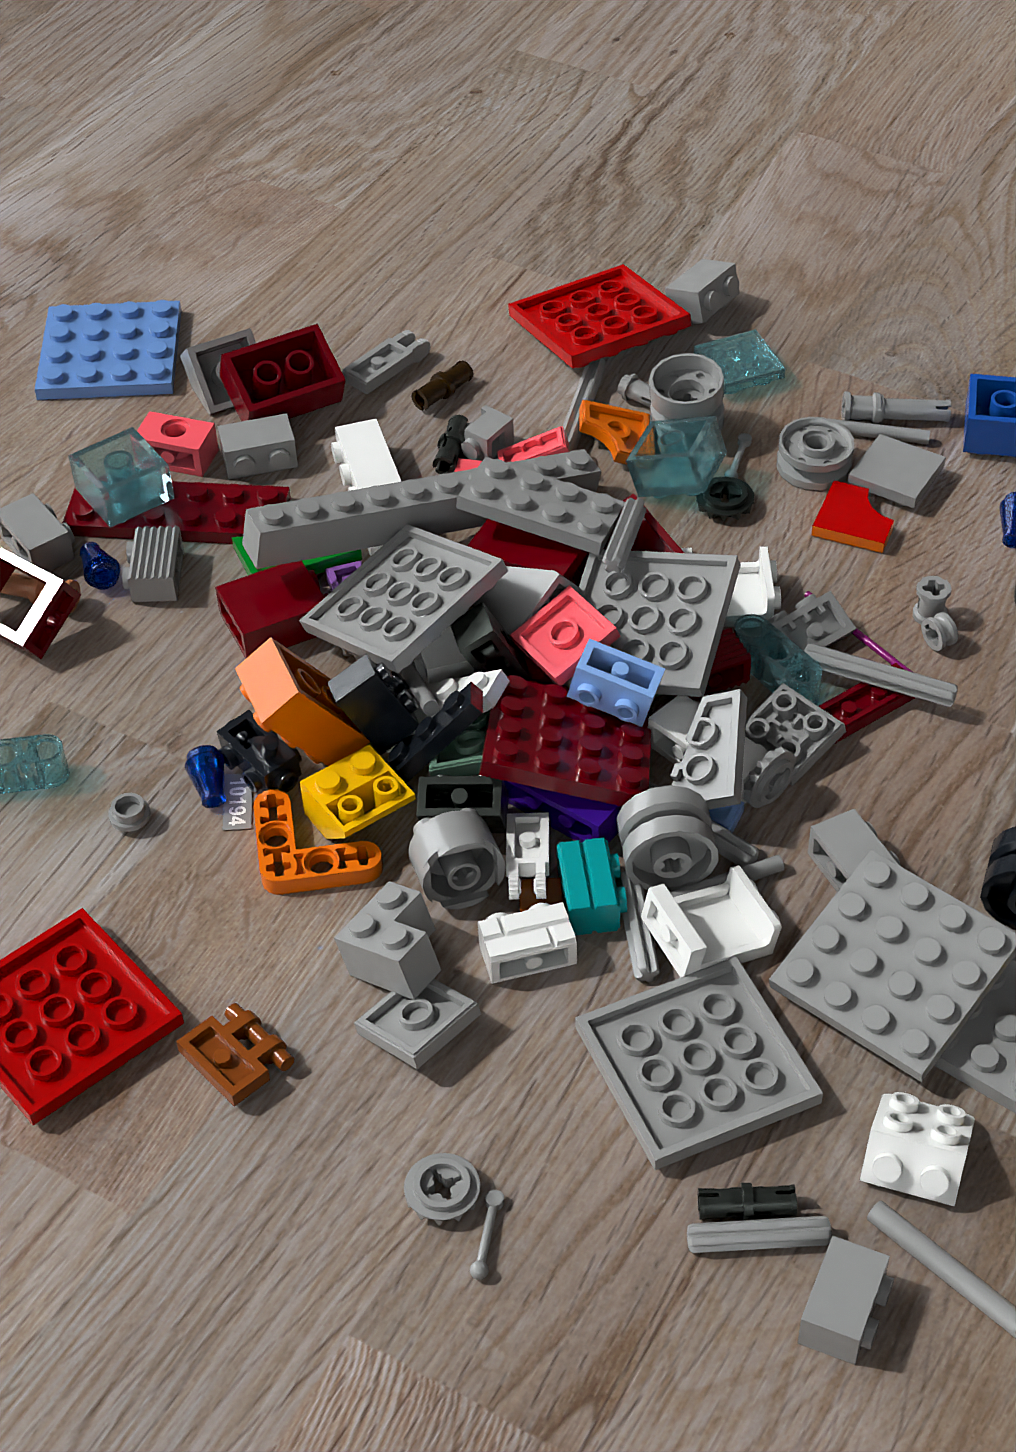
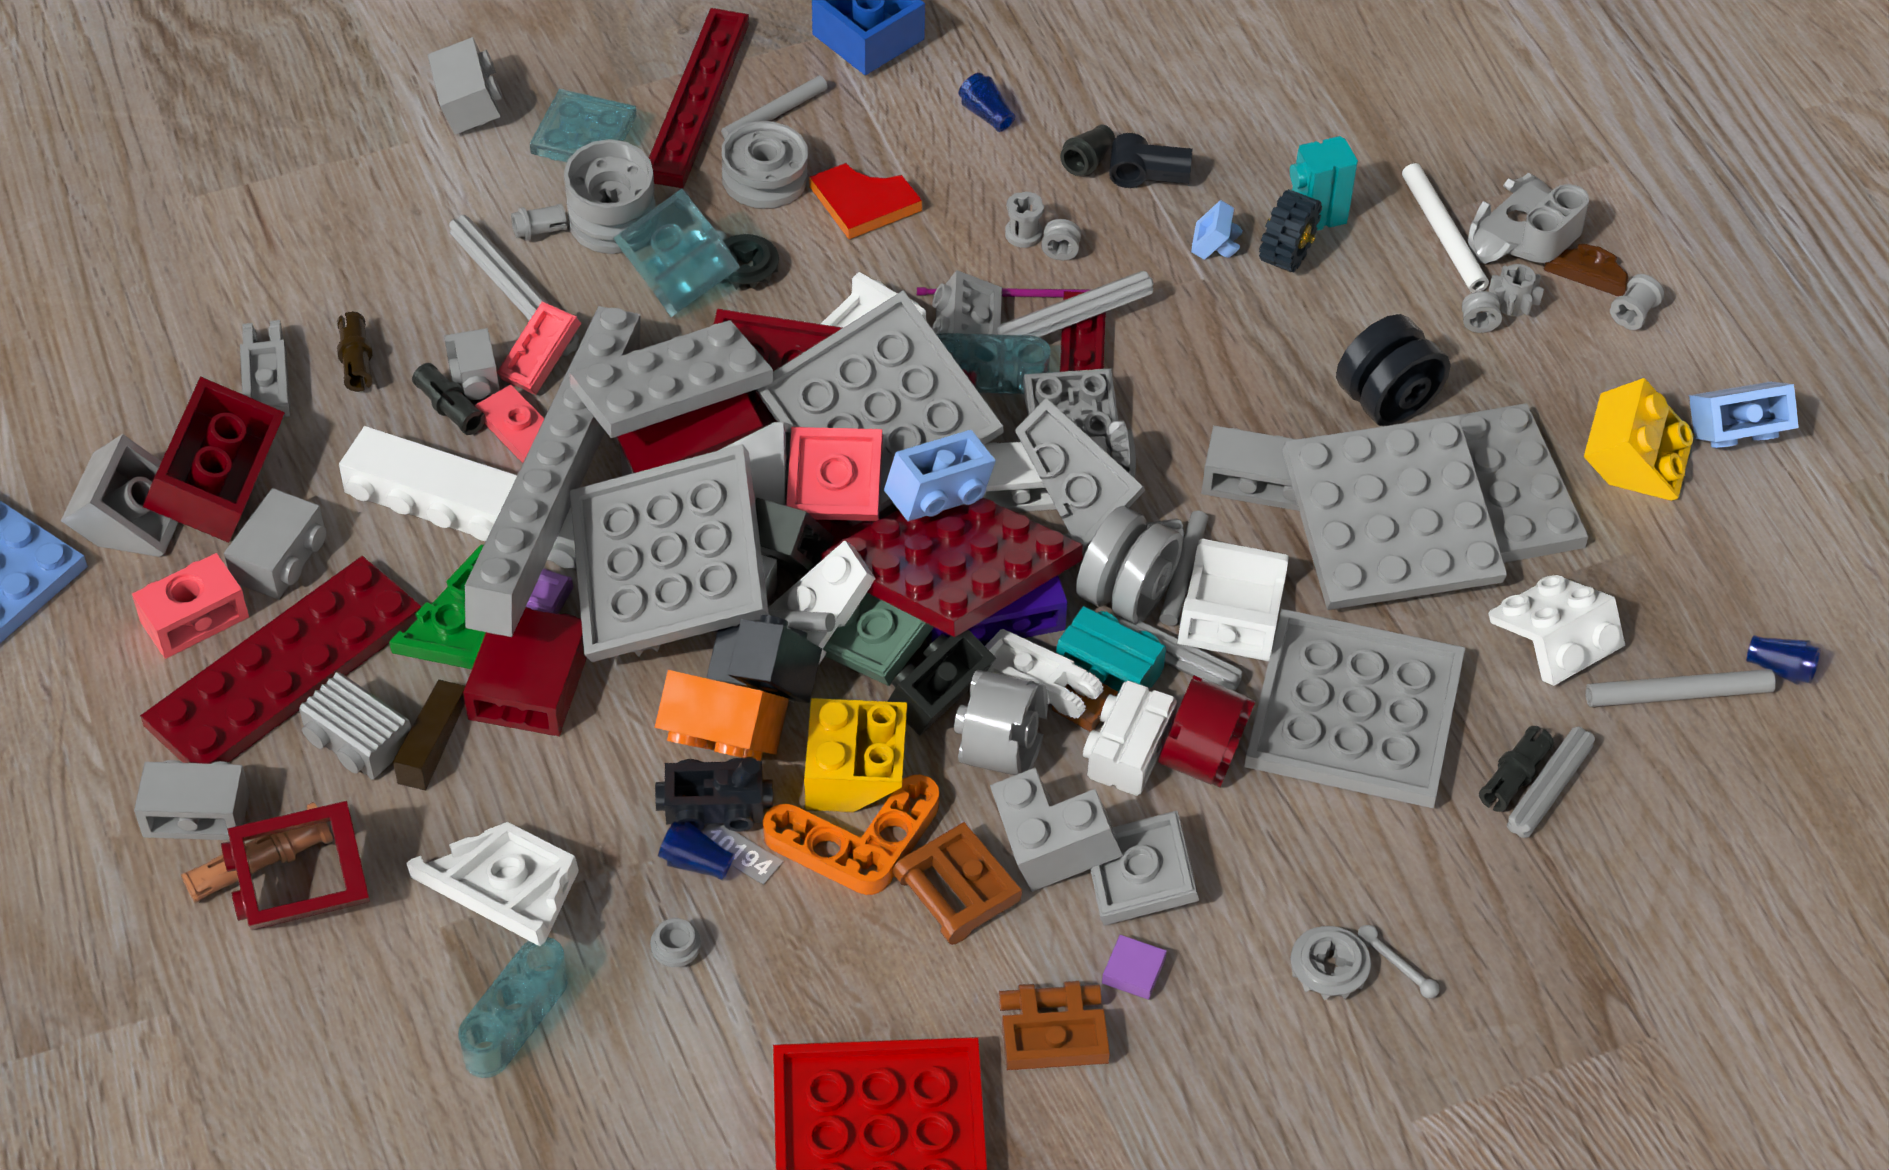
camera: 55 degrees left, 5 degrees up
(96, 700) = (504, 878): none -> white wing
(99, 567) = (301, 774): clear blue cone -> none
(121, 476) = (225, 670): clear light blue brick -> none
(178, 602) = (429, 735): none -> dark brown piece
(325, 917) = (968, 871): none -> dark orange plate
(331, 1070) = (1134, 967): none -> medium lavender tile
(437, 732) = (855, 637): black plate -> none
(565, 974) = (1206, 731): none -> dark red brick
(599, 316) = (405, 177): red plate -> none
(613, 426) = (577, 268): orange tile -> none
(624, 535) = (777, 348): light grey axle -> none
(827, 395) = (697, 96): none -> dark red tile
(844, 1300) = (1659, 767): light grey brick -> none
(879, 408) = (754, 86): light grey pin -> none
(897, 470) = (845, 130): light grey tile -> none

